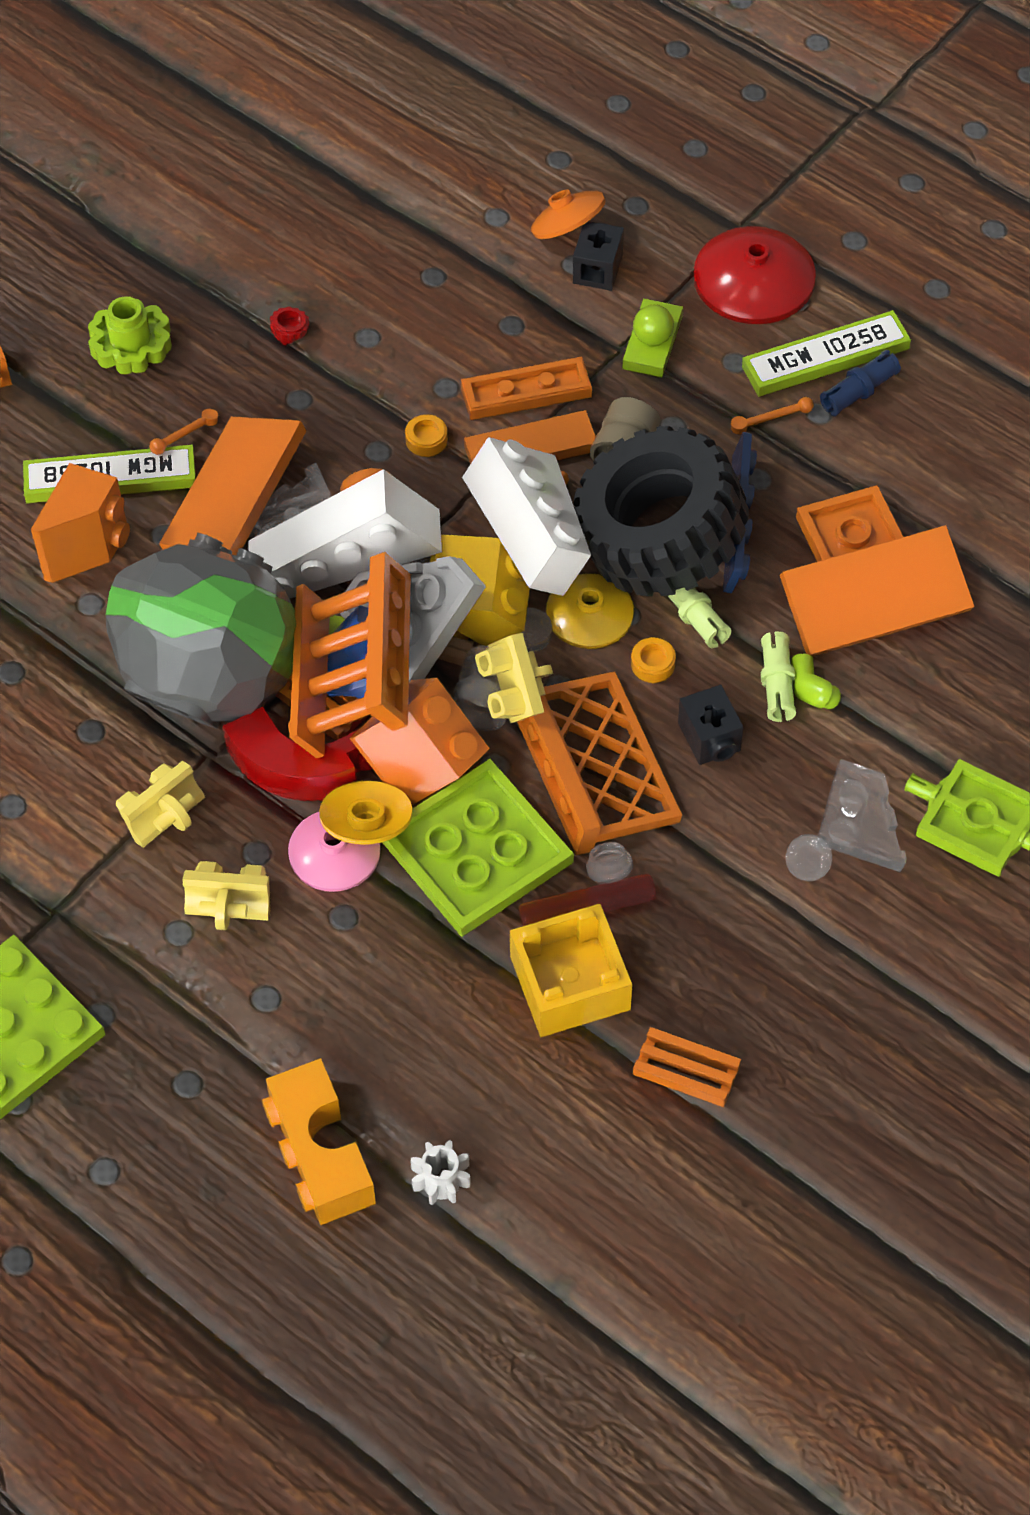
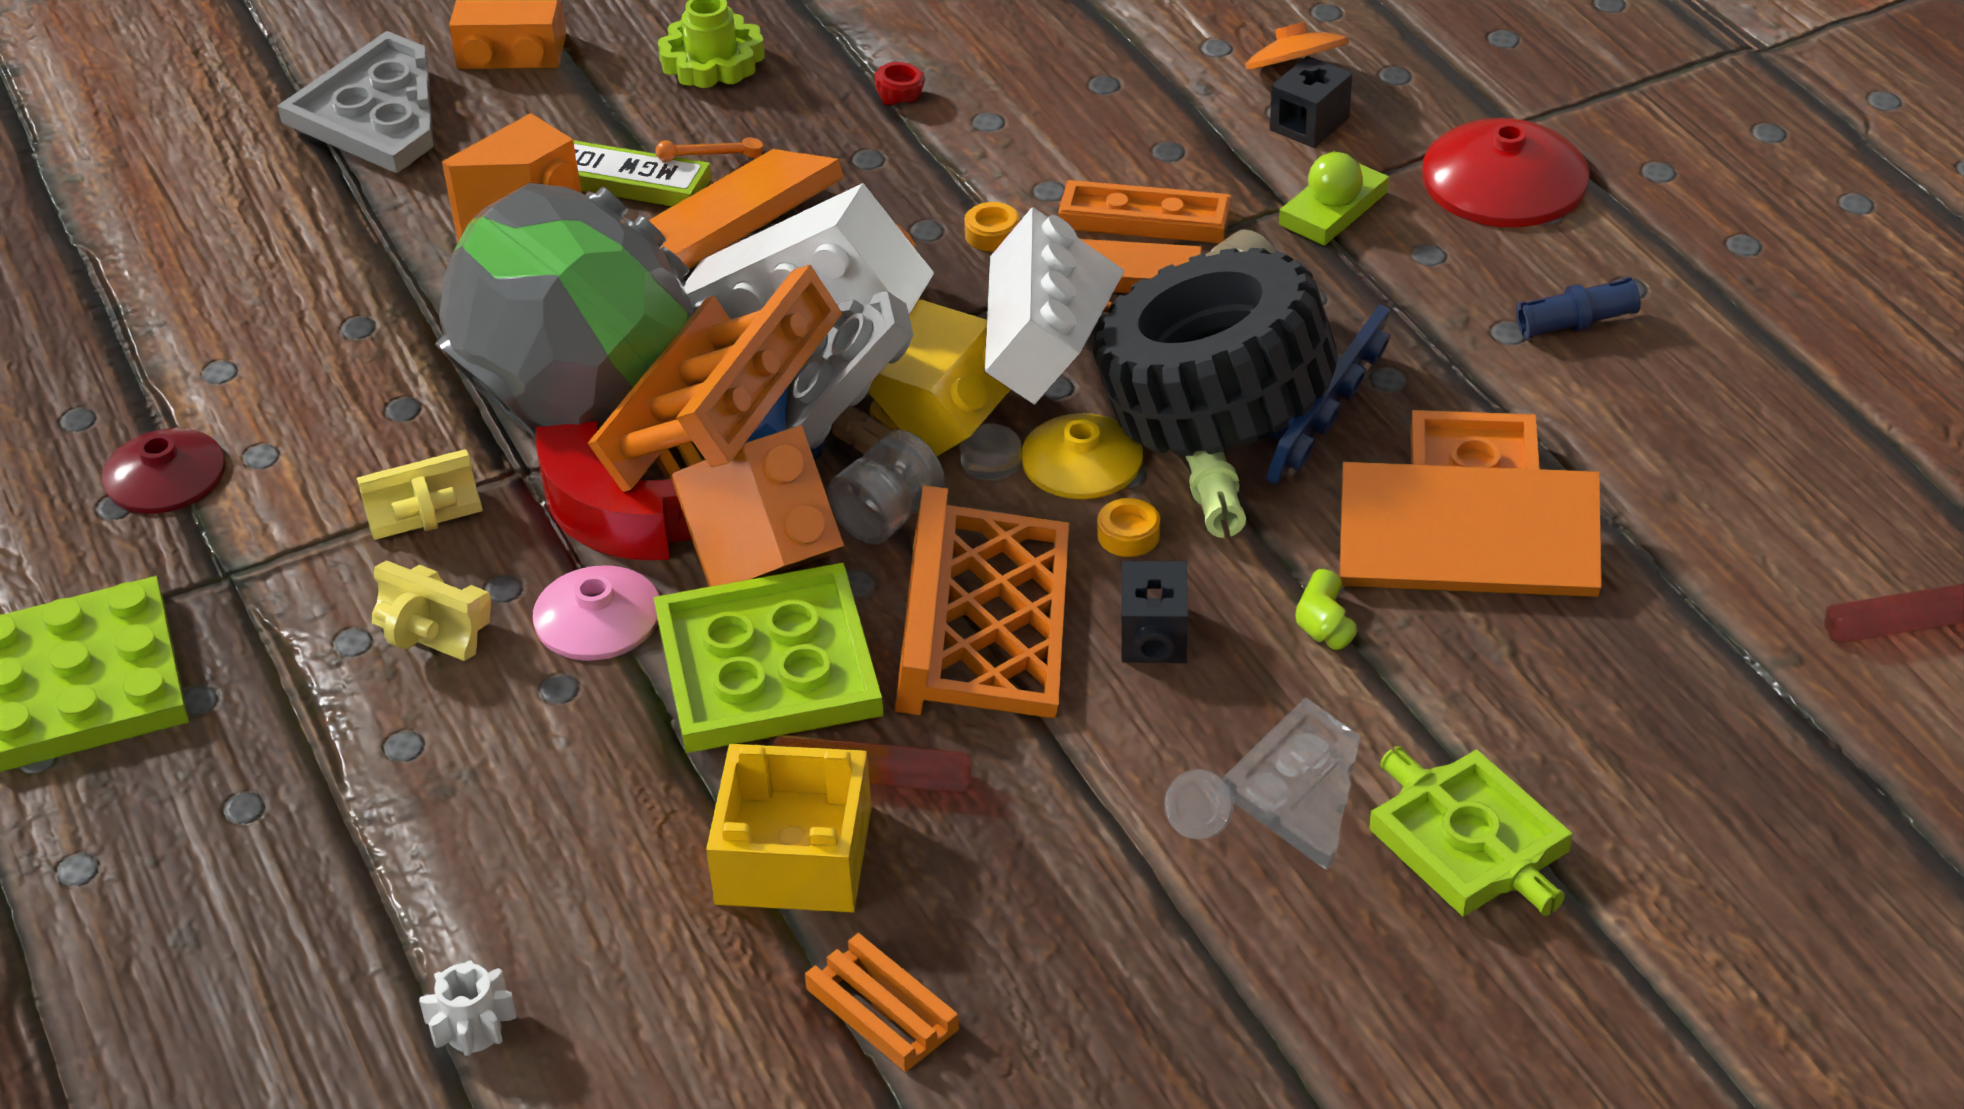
camera: 25 degrees right, 15 degrees down
(332, 1179) = (327, 965): light orange arch -> none
(365, 812) = (645, 569): yellow dish -> none
(517, 677) = (919, 467): light yellow hips -> none
(609, 863) = (924, 725): clear plate -> none
(740, 424) = (1492, 316): orange hinge -> none
(778, 676) = (1281, 589): yellowish green pin -> none
(825, 353) = (1548, 268): tile -> none

